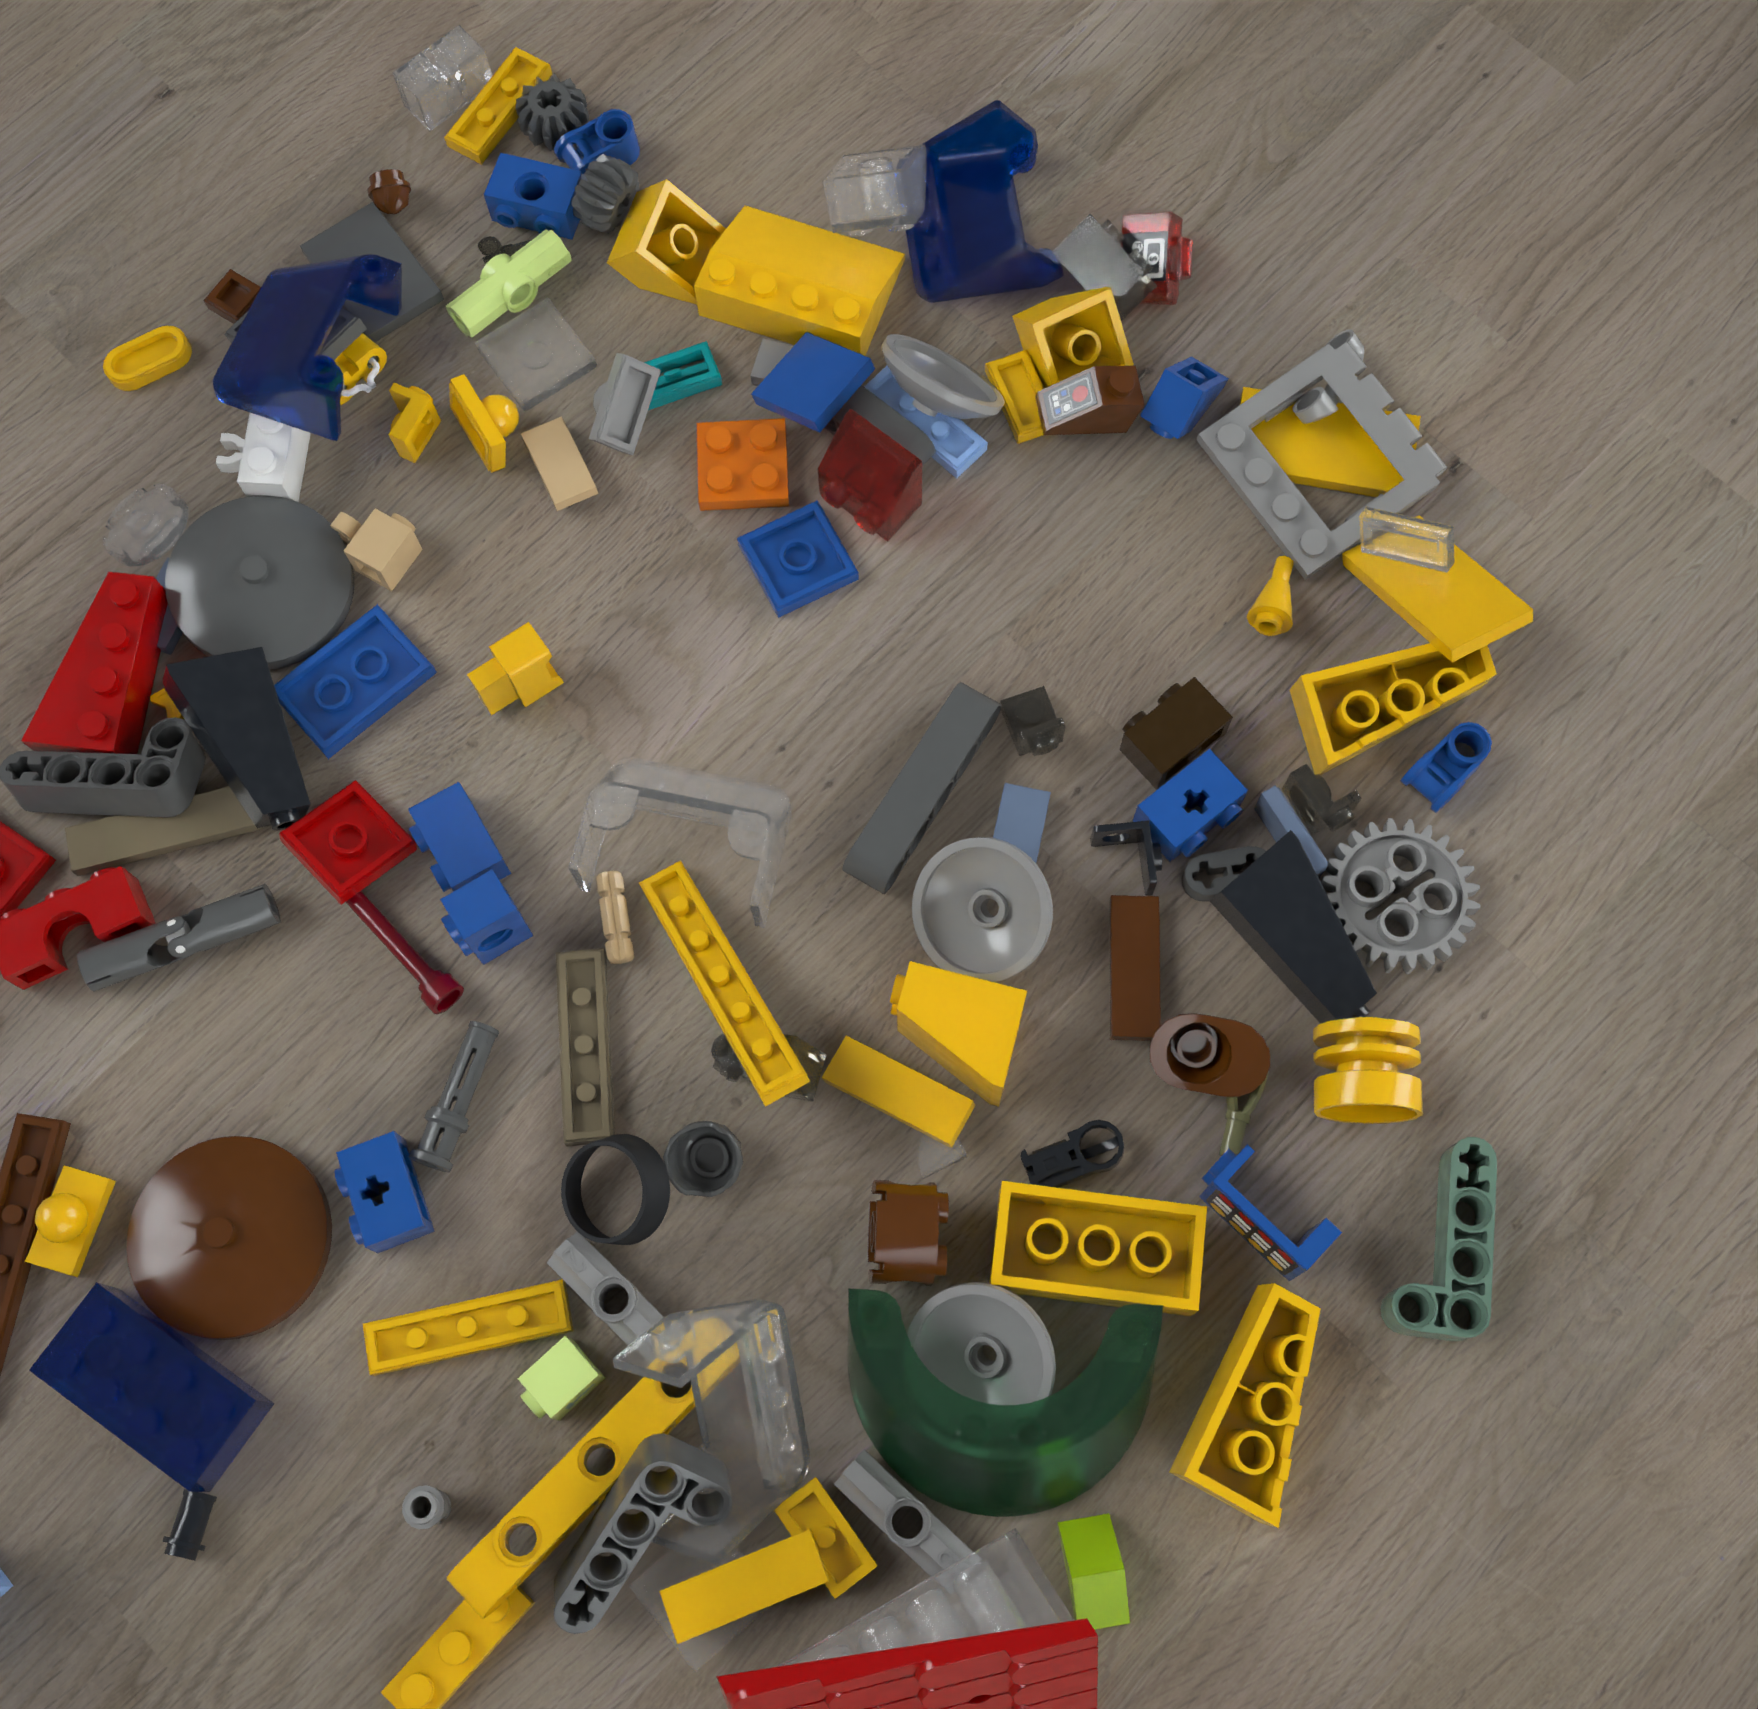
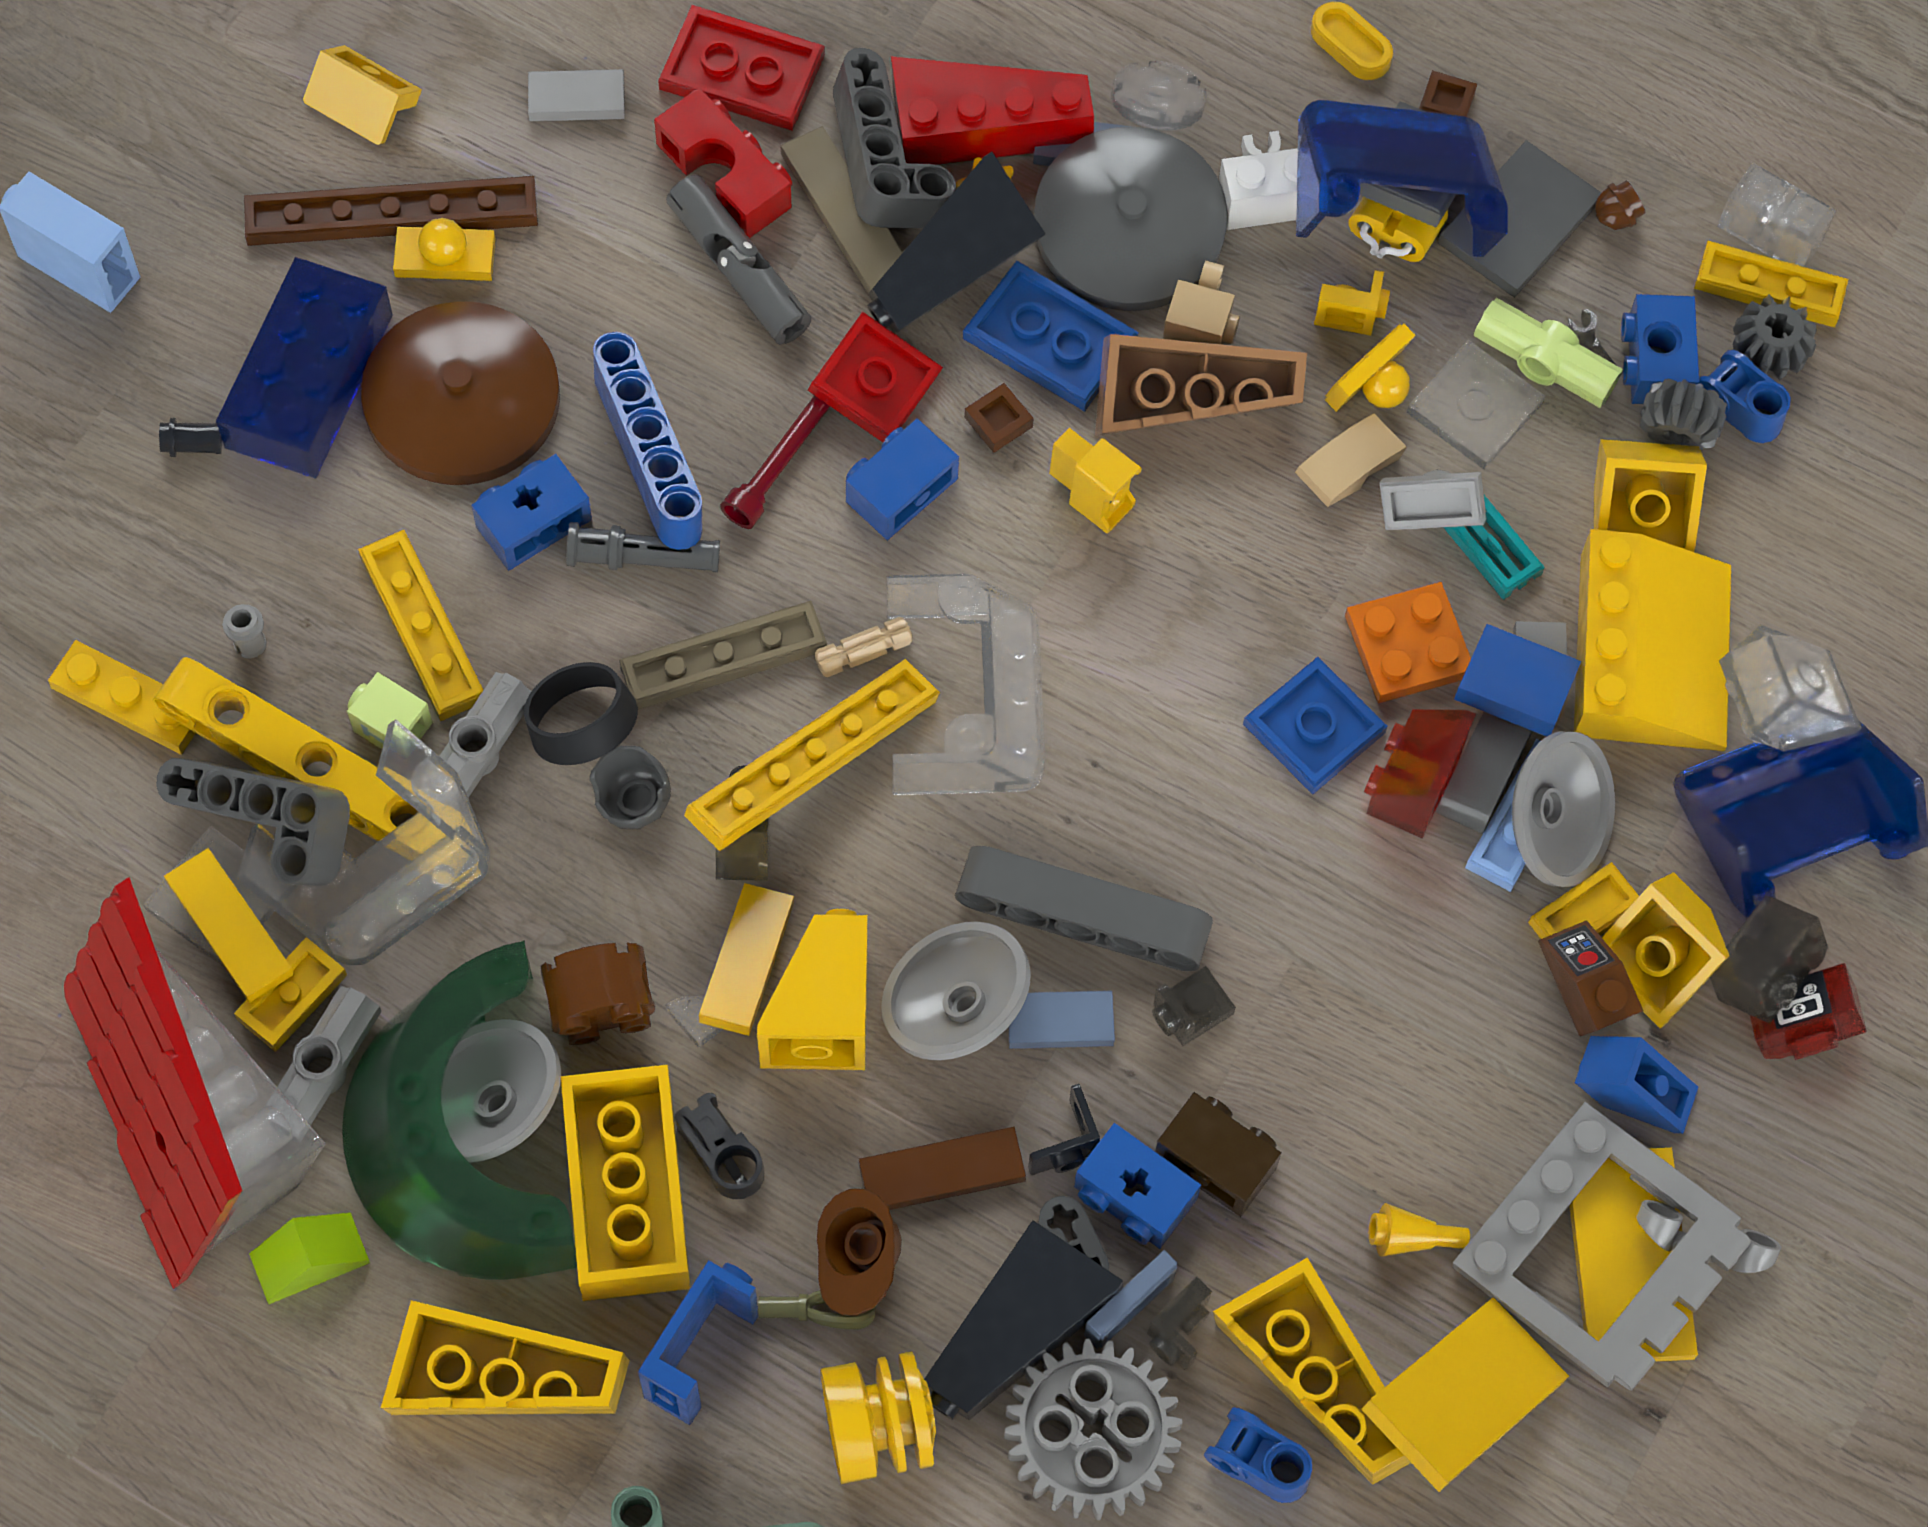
camera: 70 degrees right, 5 degrees down
(327, 1054) = (639, 416): none -> blue beam
(423, 743) = (998, 417): none -> reddish brown plate
(445, 580) = (1178, 381): none -> medium nougat wedge
(484, 918) = (822, 520): blue brick -> none
(1407, 539) = (1512, 1347): clear tile -> none

